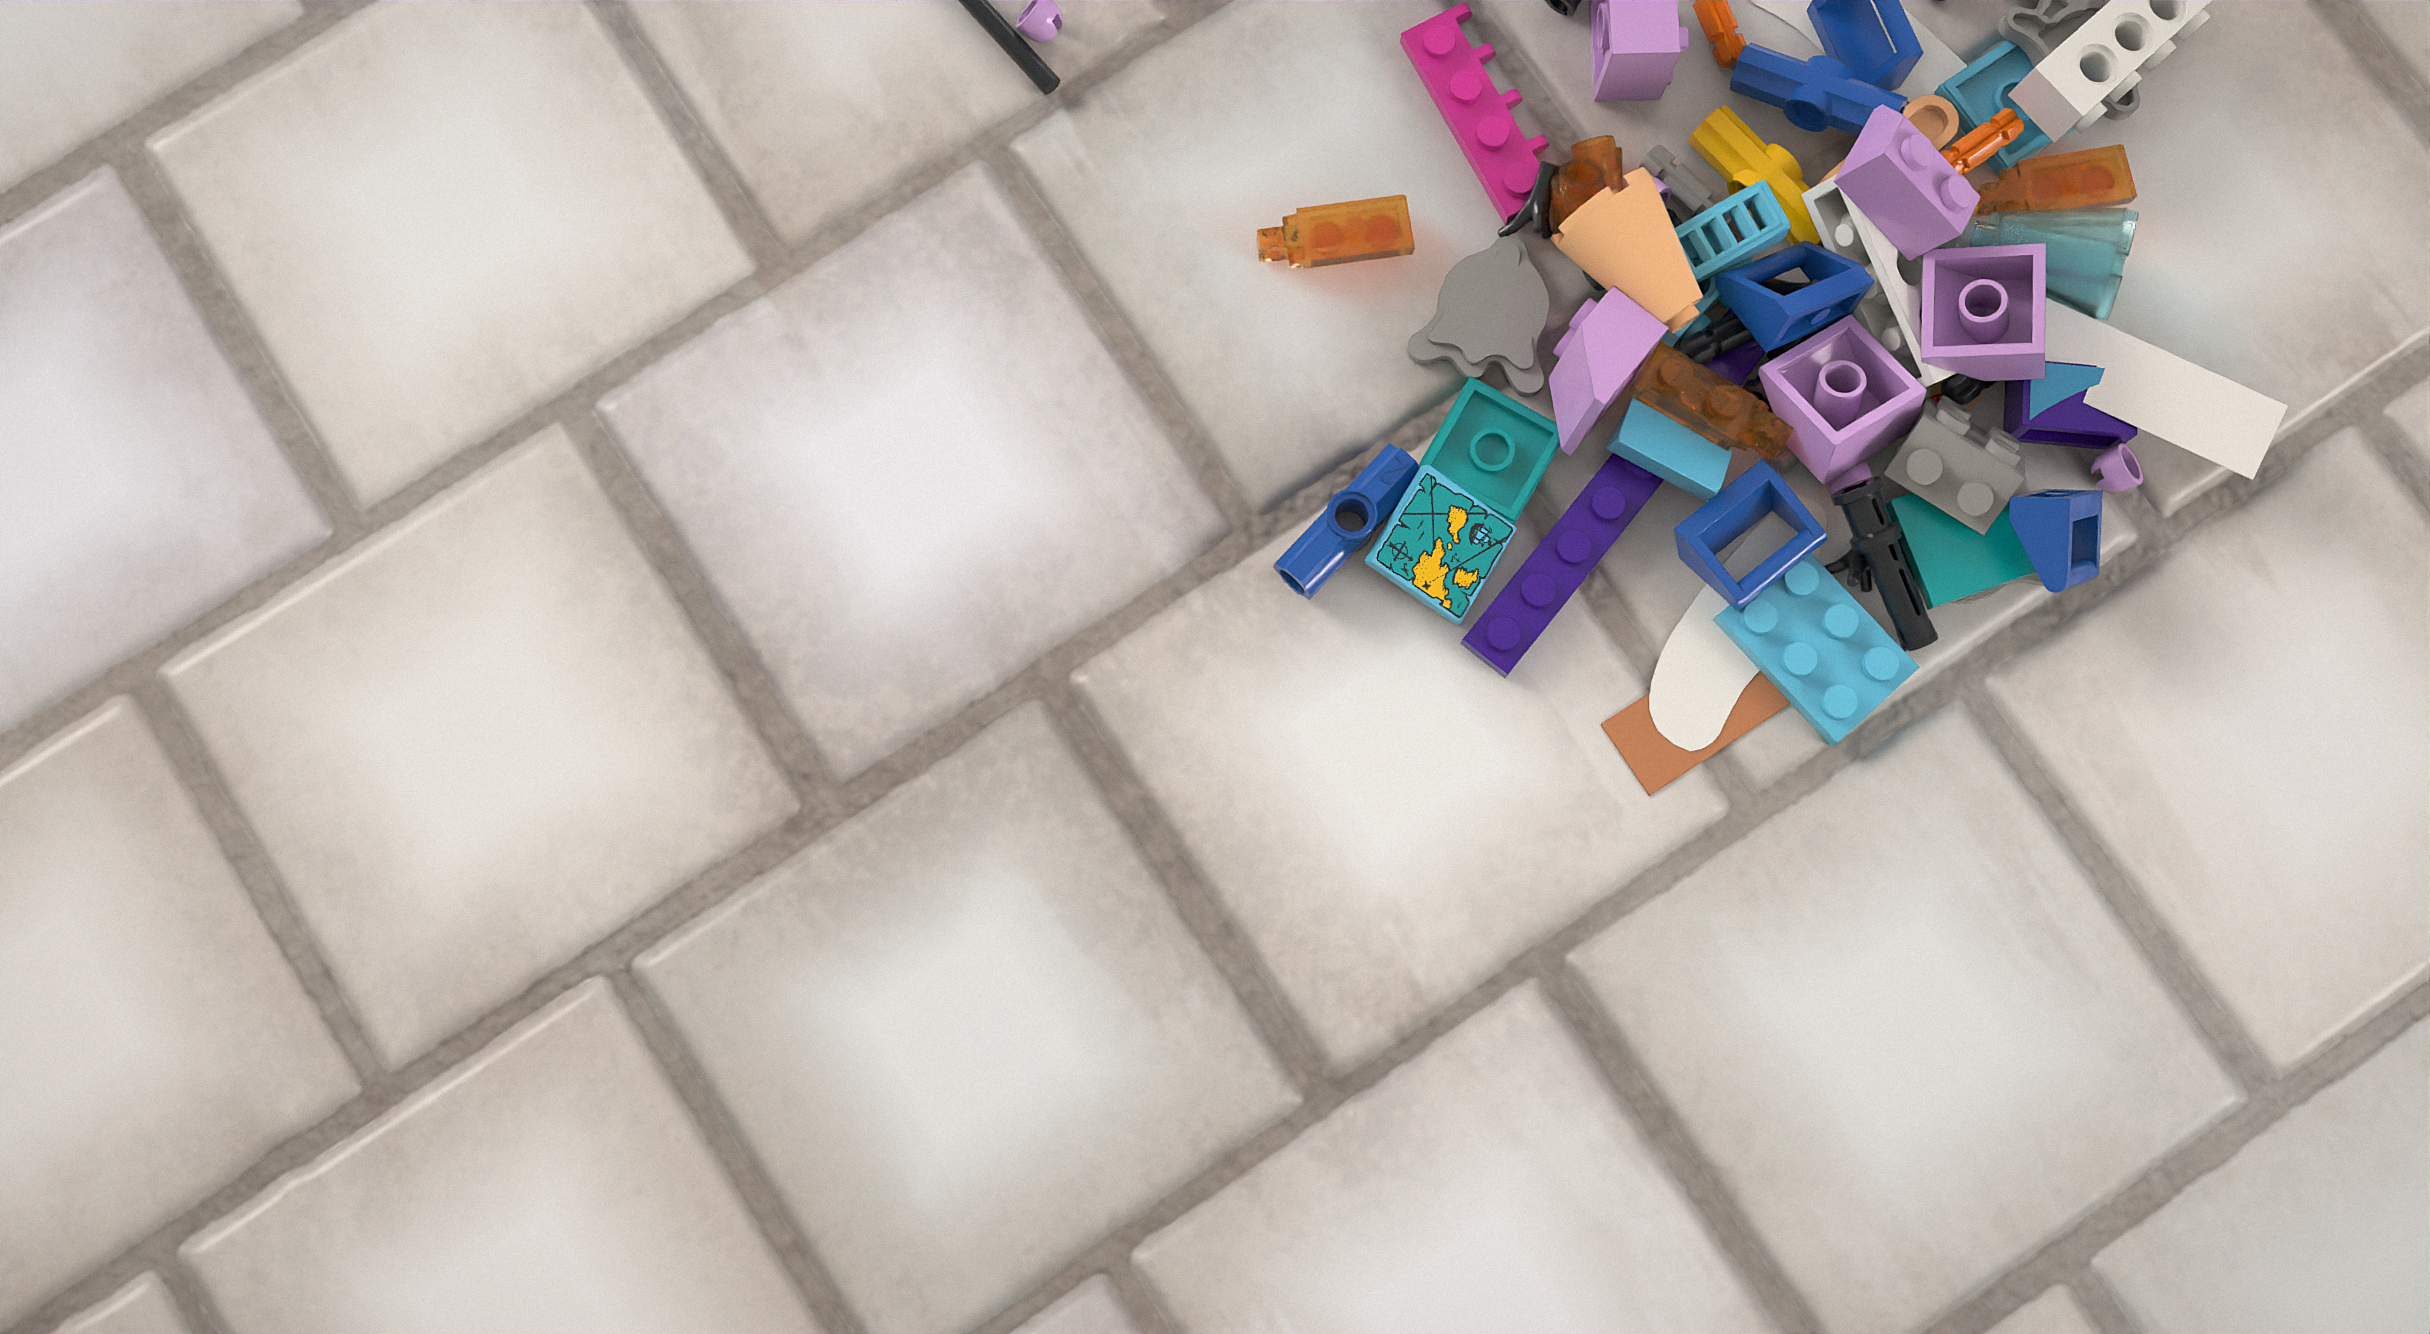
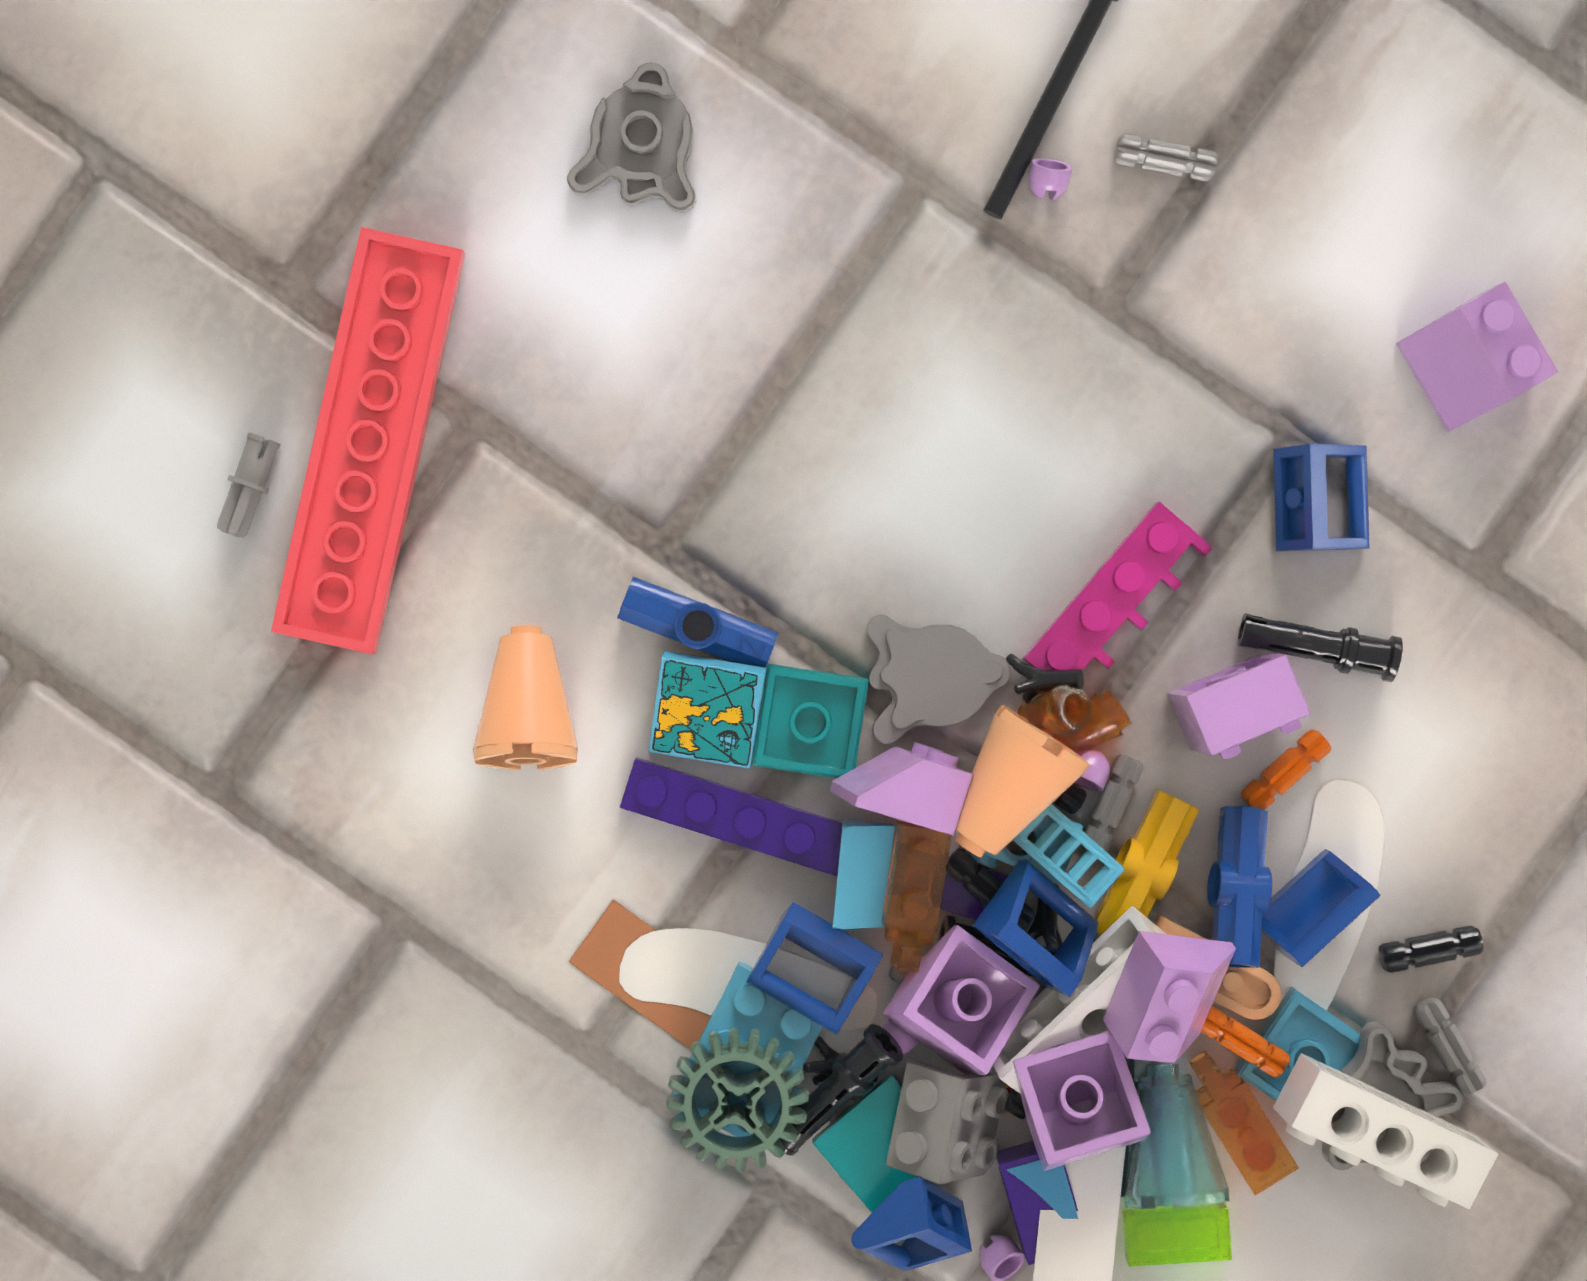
camera: 70 degrees right, 10 degrees up
(834, 393) = (641, 141): none -> light grey tile
(1017, 930) = (247, 485): none -> light grey axle
(1025, 785) = (368, 441): none -> coral plate
(1340, 233) = (953, 520): clear orange hinge -> none
(1367, 723) = (525, 707): none -> light nougat cone
(1866, 681) = (702, 1128): none -> sand green gear
(2152, 287) = (1176, 1235): none -> clear neon green tile

